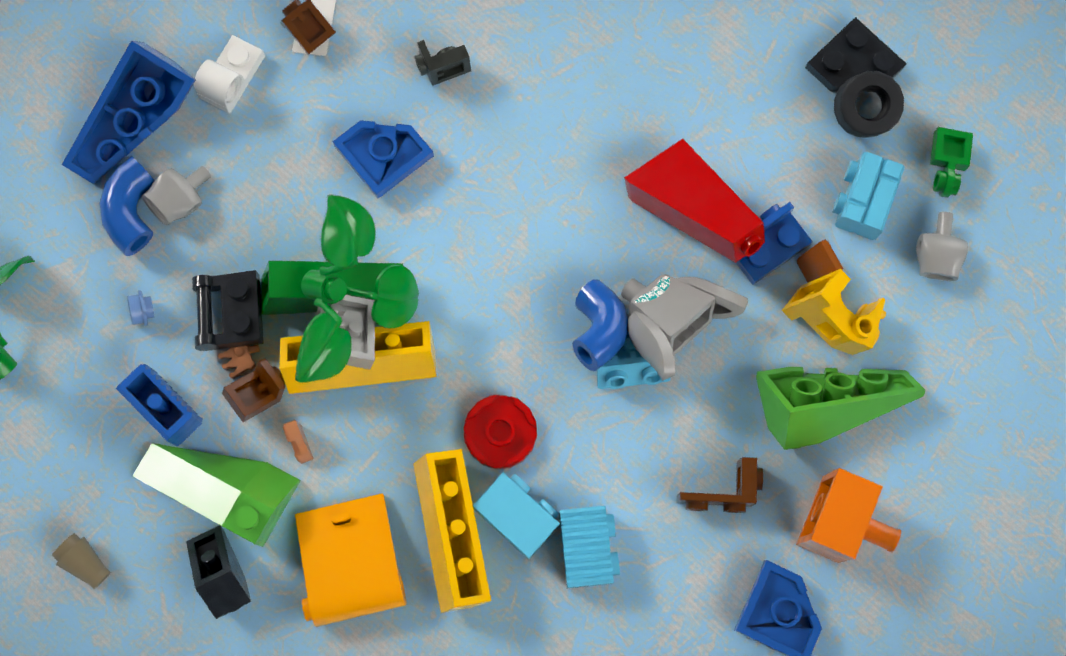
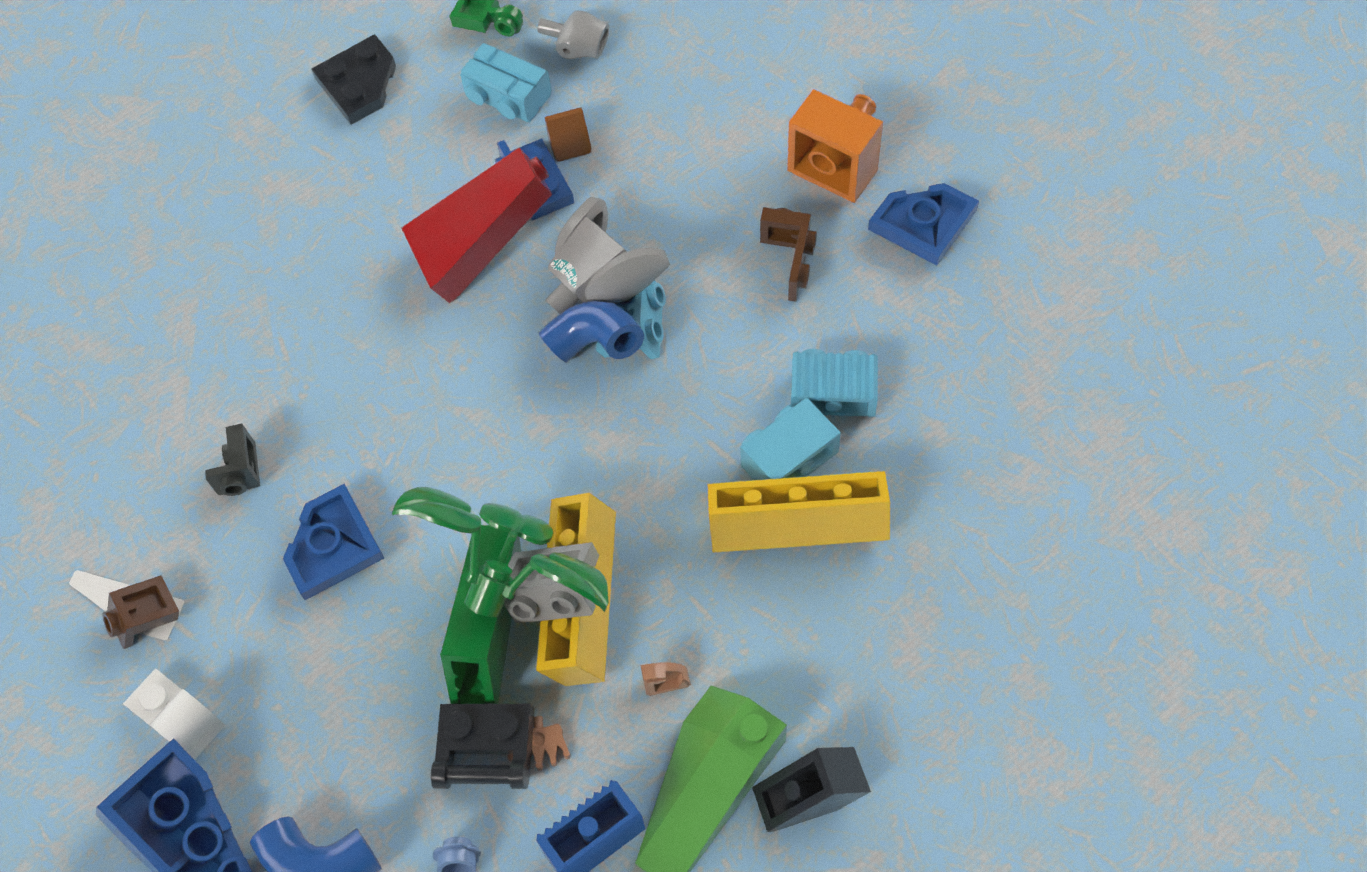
camera: 75 degrees left, 15 degrees down
(175, 196) = (317, 797): light grey piece -> none
(255, 391) = (592, 717): reddish brown bracket -> none
(348, 565) = (821, 634): light orange door -> none
(500, 431) = (688, 458): red tile -> none
(816, 407) = (716, 151): bright green wedge -> none
(823, 309) = (627, 124): yellow tile -> none
(889, 94) = (406, 84): black tyre -> none

